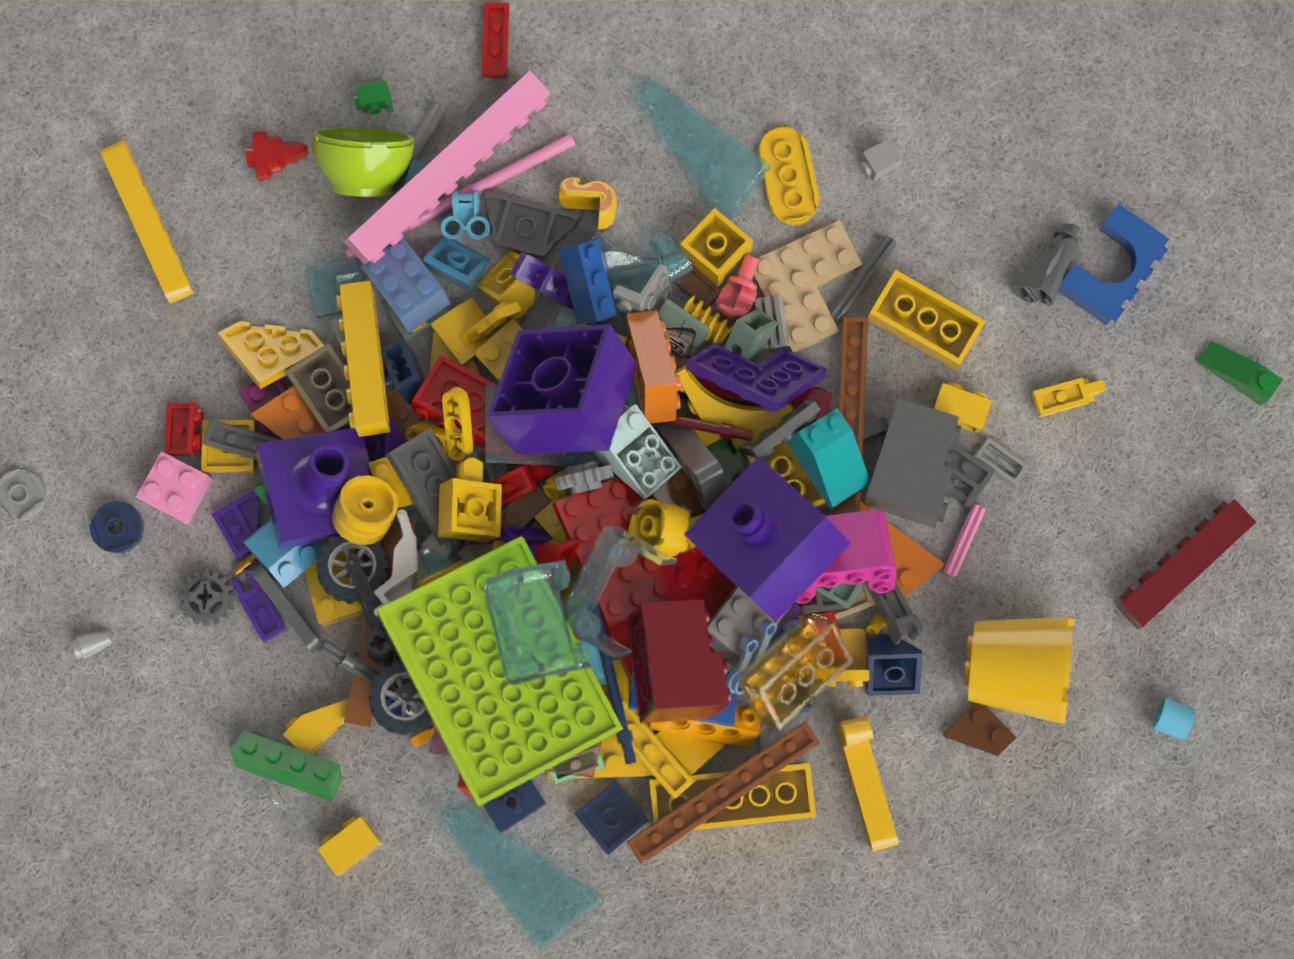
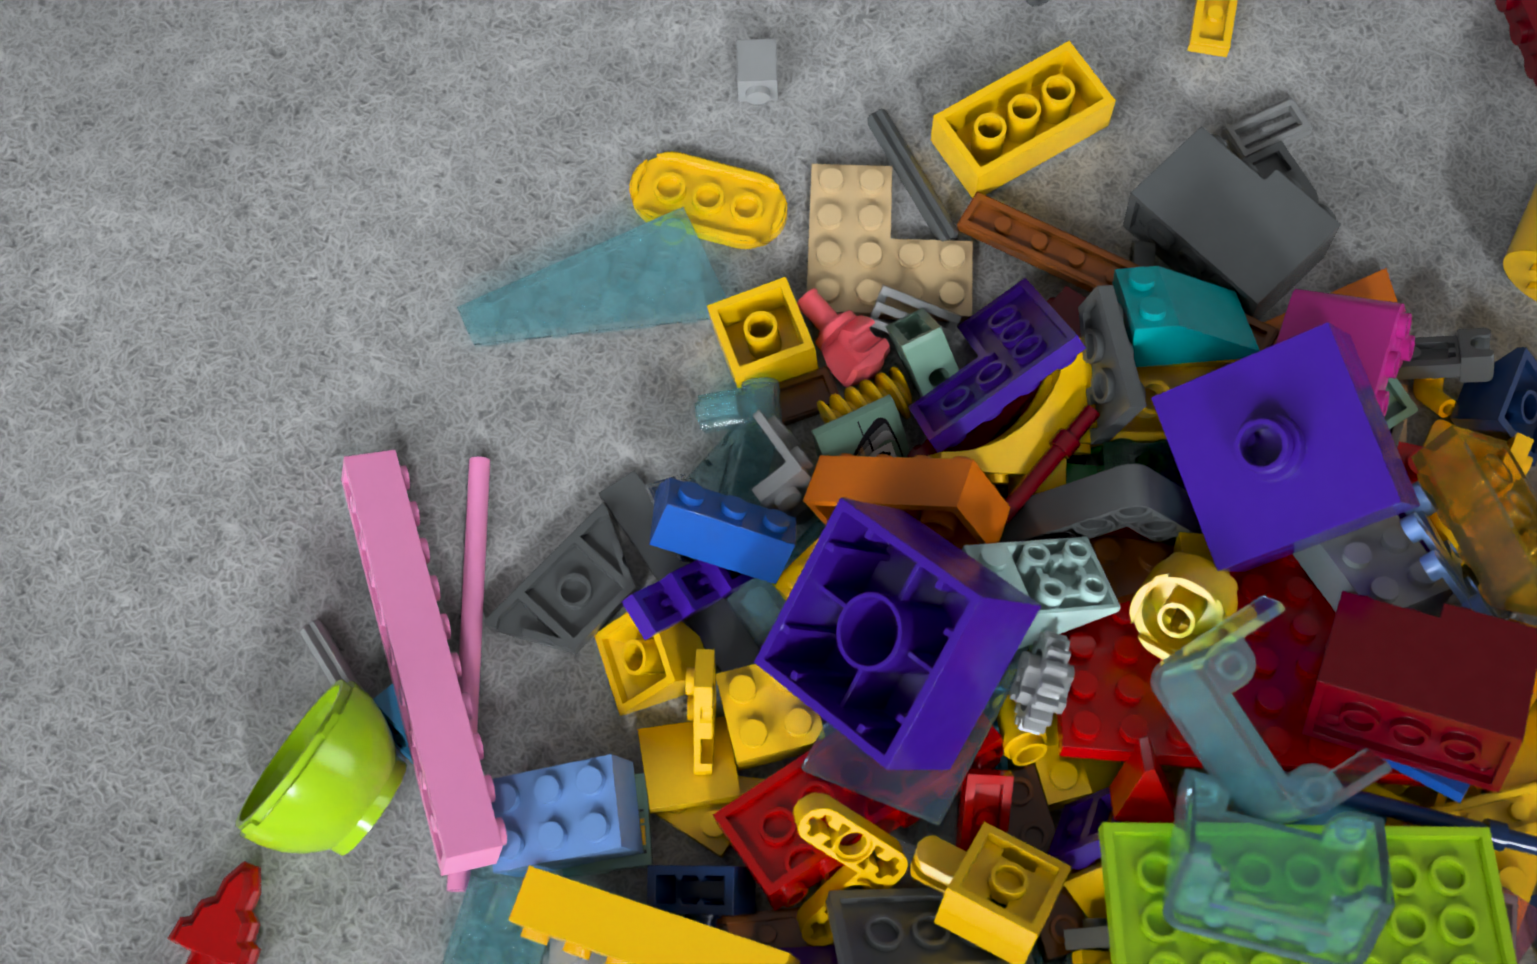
camera: 60 degrees left, 10 degrees down
(373, 98) = (236, 716): green brick -> none
(456, 263) = (572, 723): dark azure slope -> none
(465, 215) = (507, 668): medium azure piece -> none
(495, 40) = (263, 492): red plate -> none
(590, 196) = (584, 473): yellow animal -> none
(964, 540) = (1362, 230): bright pink axle -> none
(969, 407) = (1163, 133): yellow brick -> none

